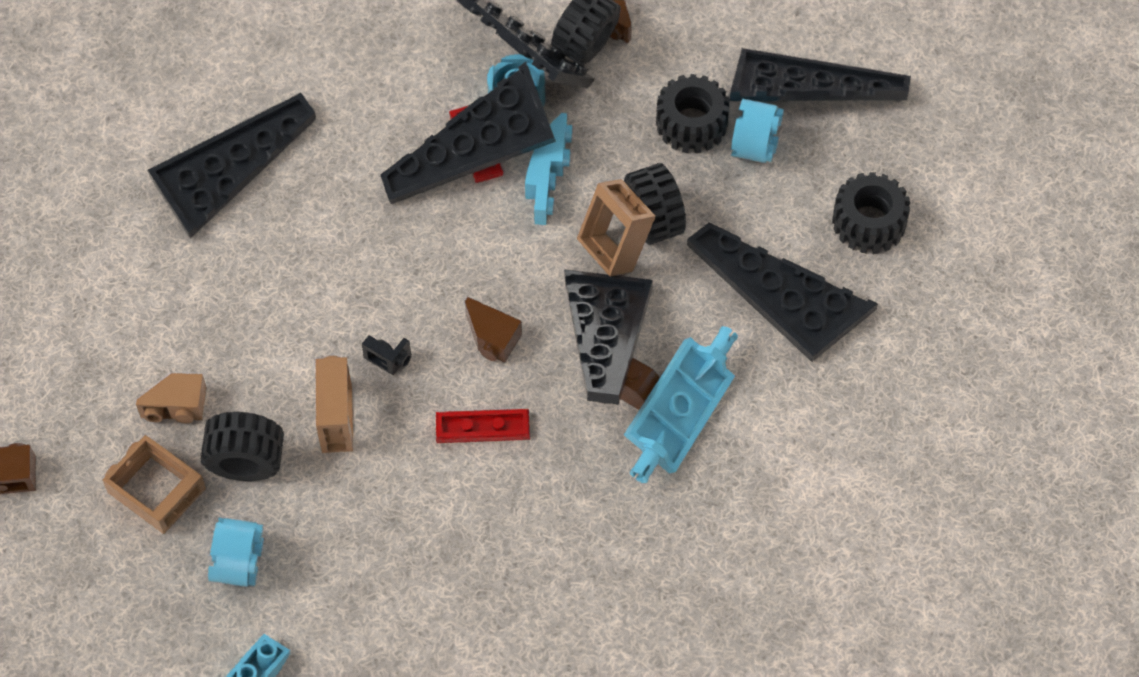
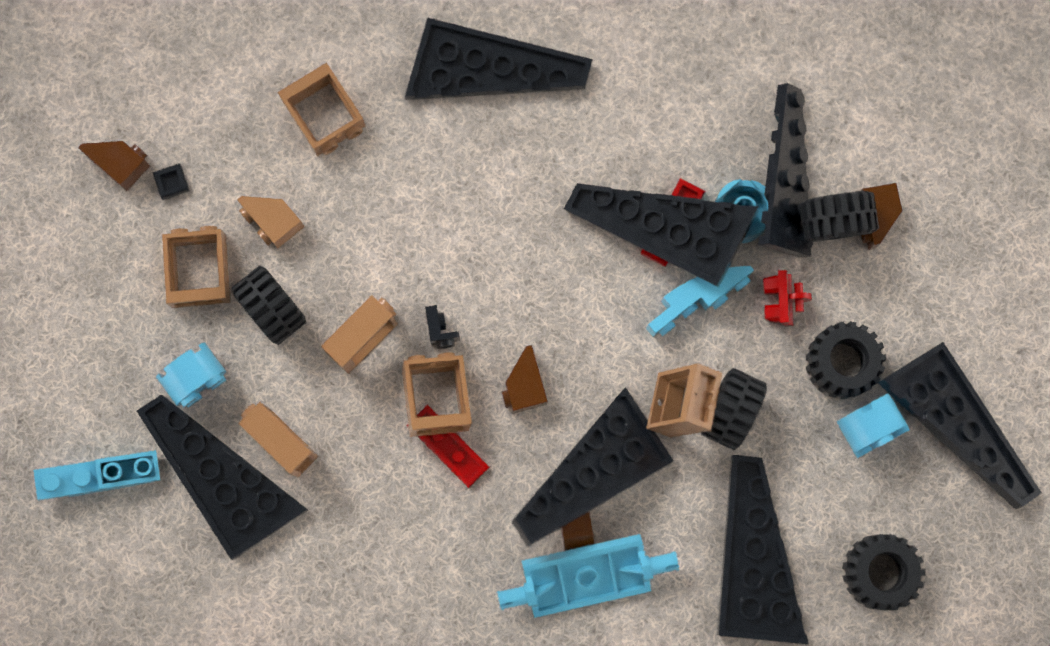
camera: 45 degrees right, 20 degrees up
(65, 450) = (171, 181): none -> black tile
(114, 270) = (306, 87): none -> medium nougat window
(343, 609) = (228, 490): none -> black wing
(351, 529) = (277, 439): none -> medium nougat window
(456, 412) = (442, 423): none -> medium nougat window
(616, 125) = (782, 285): none -> red hips

